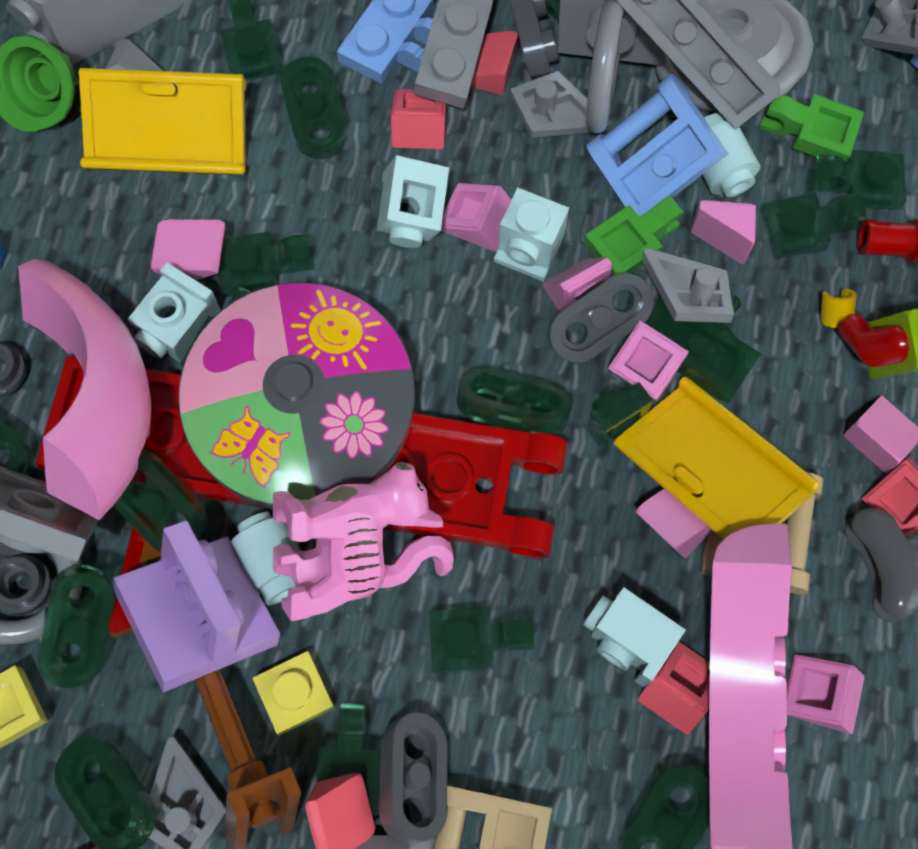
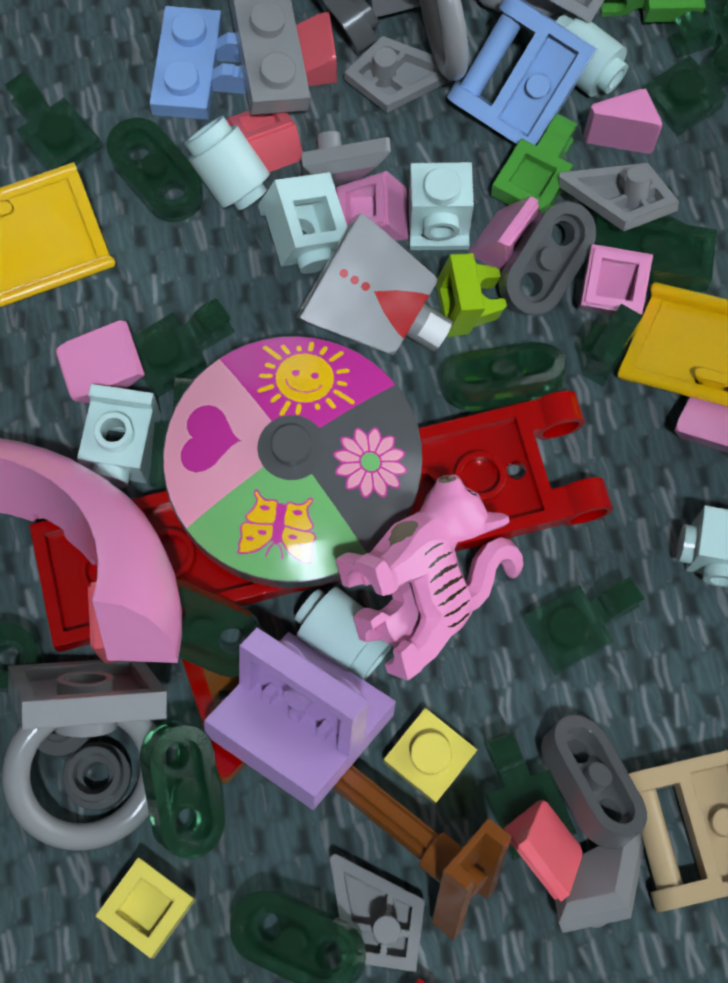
camera: 25 degrees left, 0 degrees up
(370, 126) = (227, 164): none -> light aqua brick
(433, 285) = (374, 293): none -> light grey torso
(465, 162) = (346, 161): none -> light grey piece
(510, 323) = (461, 293): none -> lime tile

